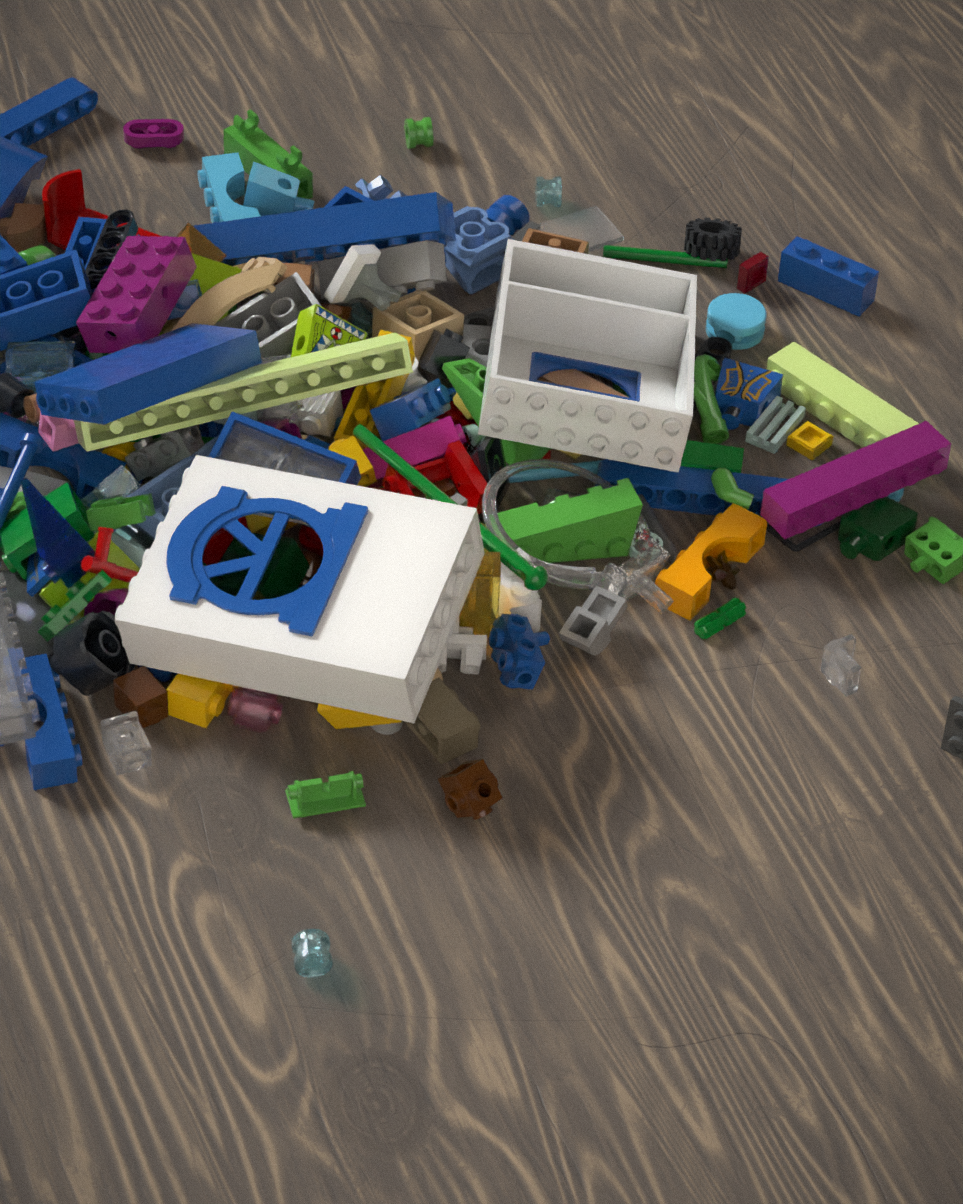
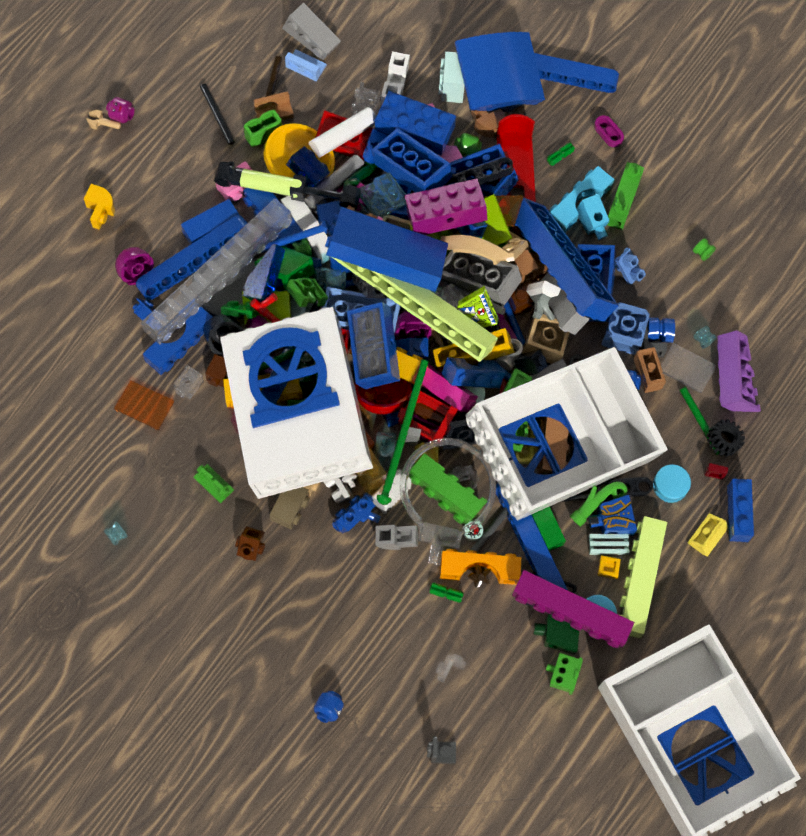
camera: 55 degrees right, 25 degrees up
(112, 824) = (144, 405): none -> clear orange piece
(140, 198) = (562, 153): none -> green piece
(625, 186) = (736, 373): none -> medium lavender wedge
(727, 488) = (526, 549): bright green arm -> none
(807, 825) = (328, 706): none -> blue head
(834, 327) = (708, 534): none -> light yellow slope

